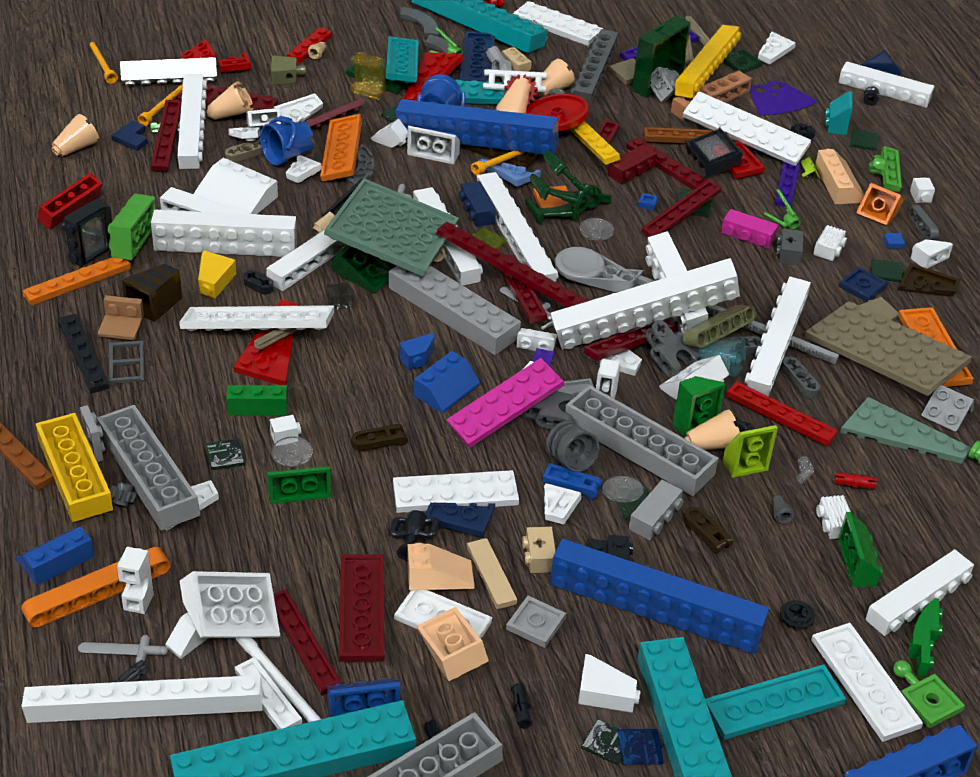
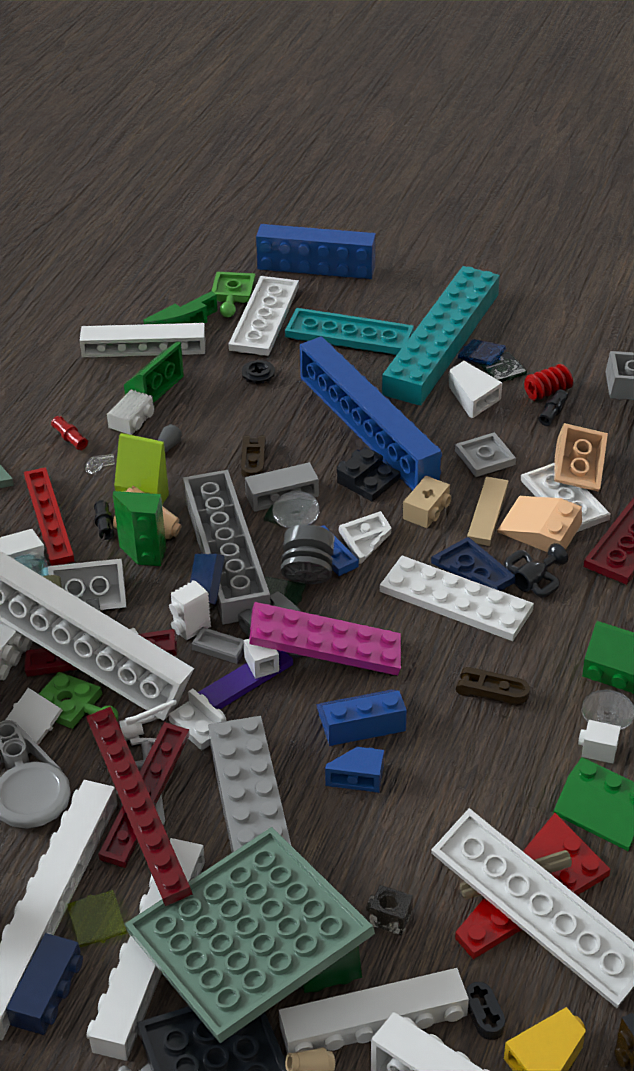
camera: 140 degrees left, 0 degrees up
(545, 728) = (548, 381): none -> red piece
(615, 392) = (207, 572): none -> dark blue tile

